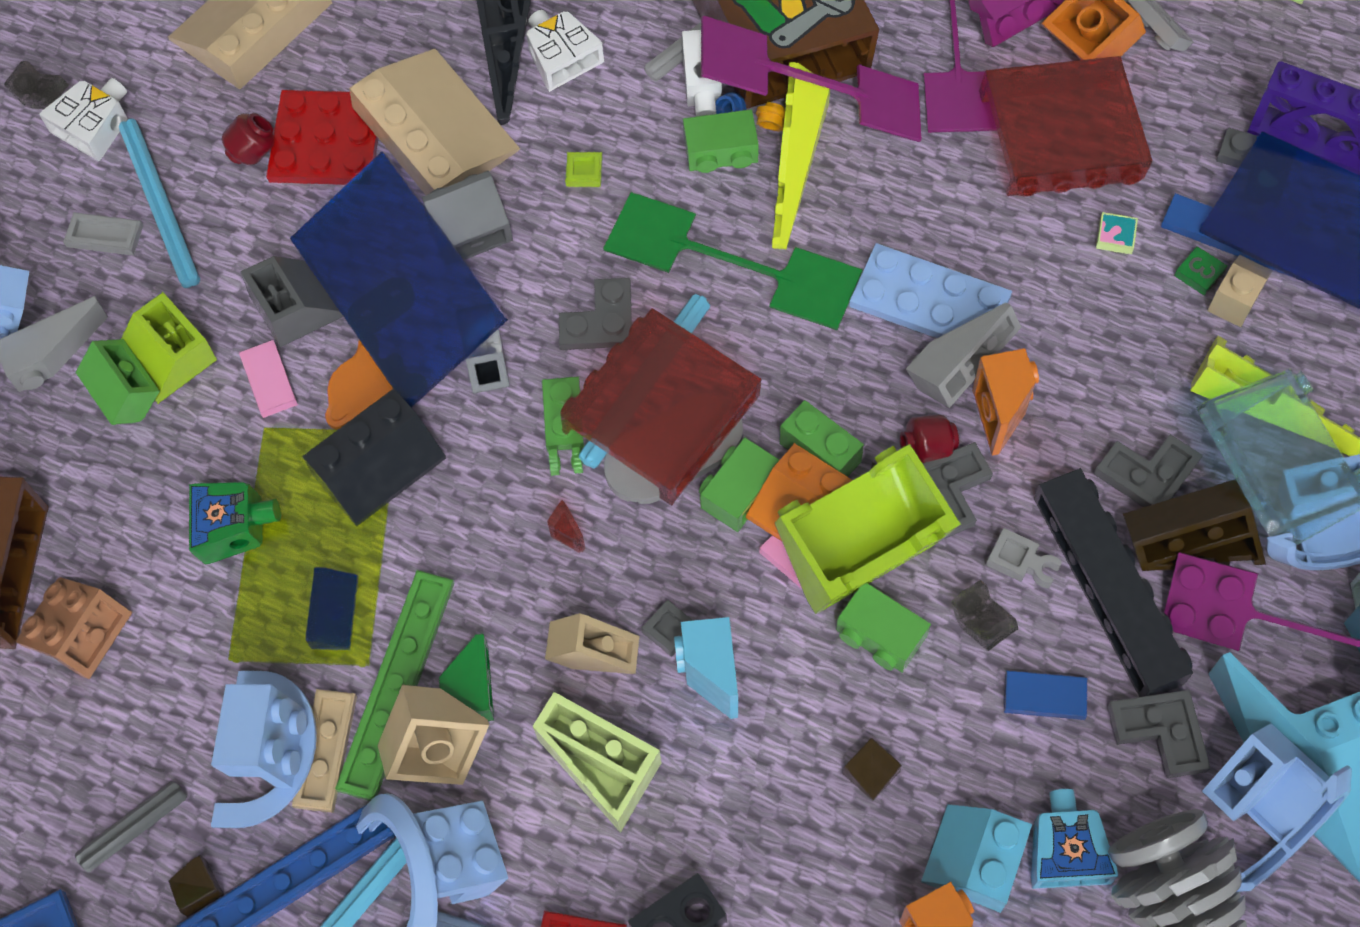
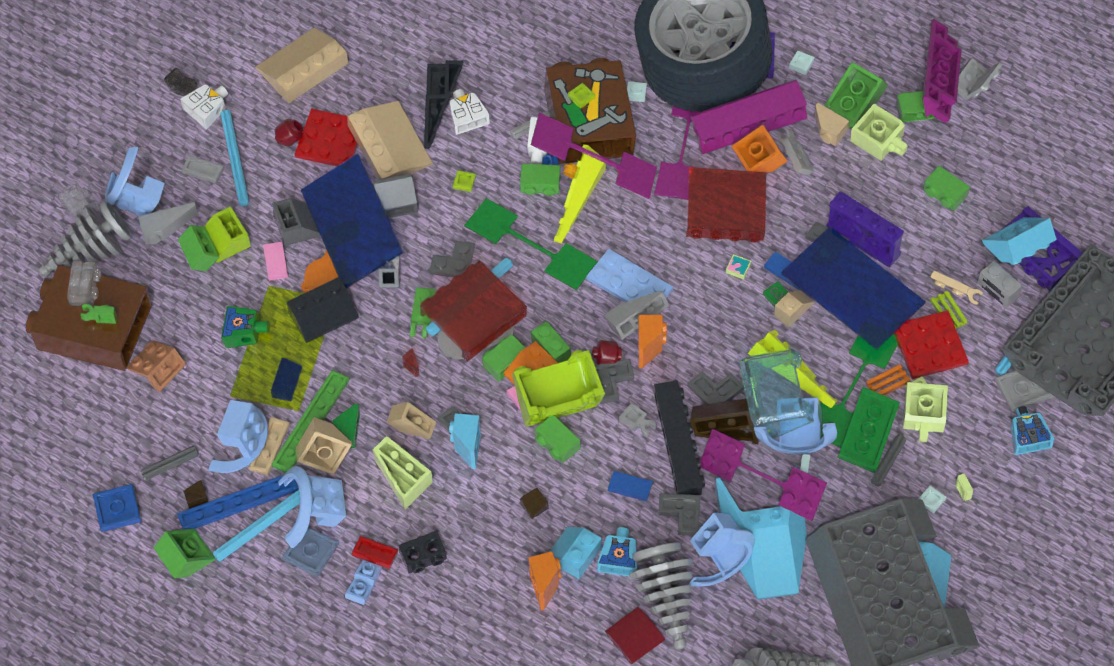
camera: 10 degrees right, 5 degrees down
(982, 616) = (608, 442): clear smoke bracket -> none

